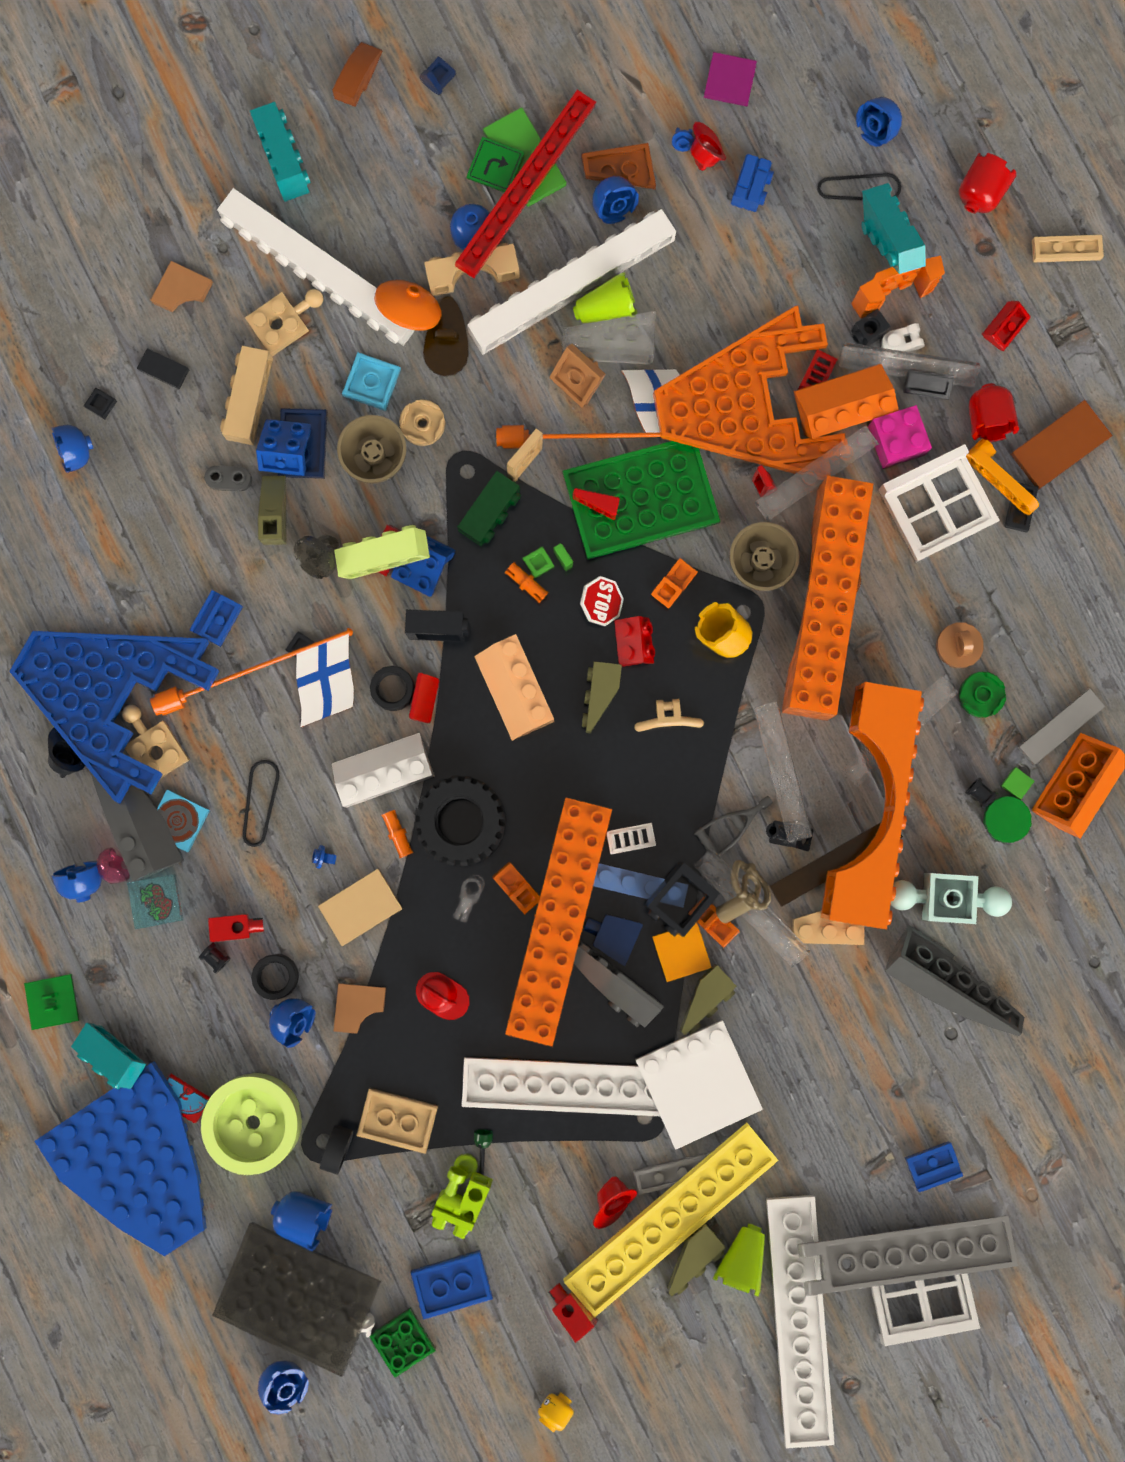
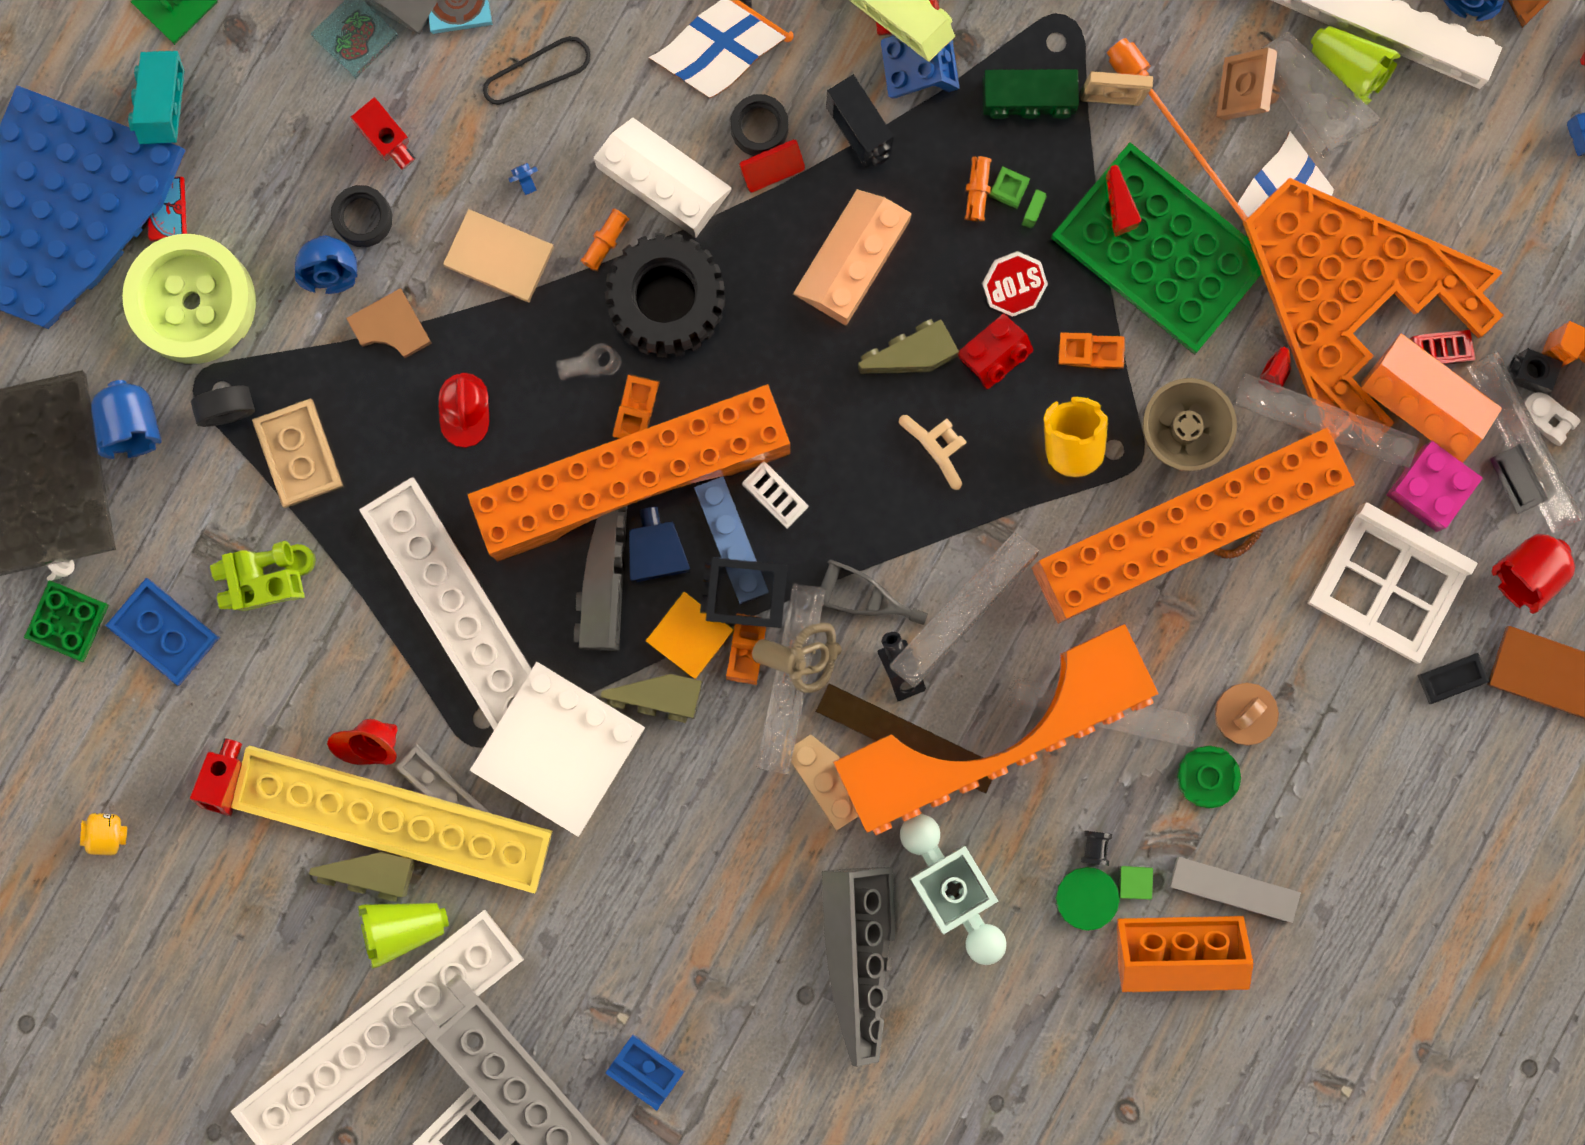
camera: 55 degrees right, 0 degrees up
(212, 950) = (337, 149): black bush -> none
(482, 1139) = (338, 558): dark green hinge -> none
(980, 459) = (1474, 594): light orange beam -> none

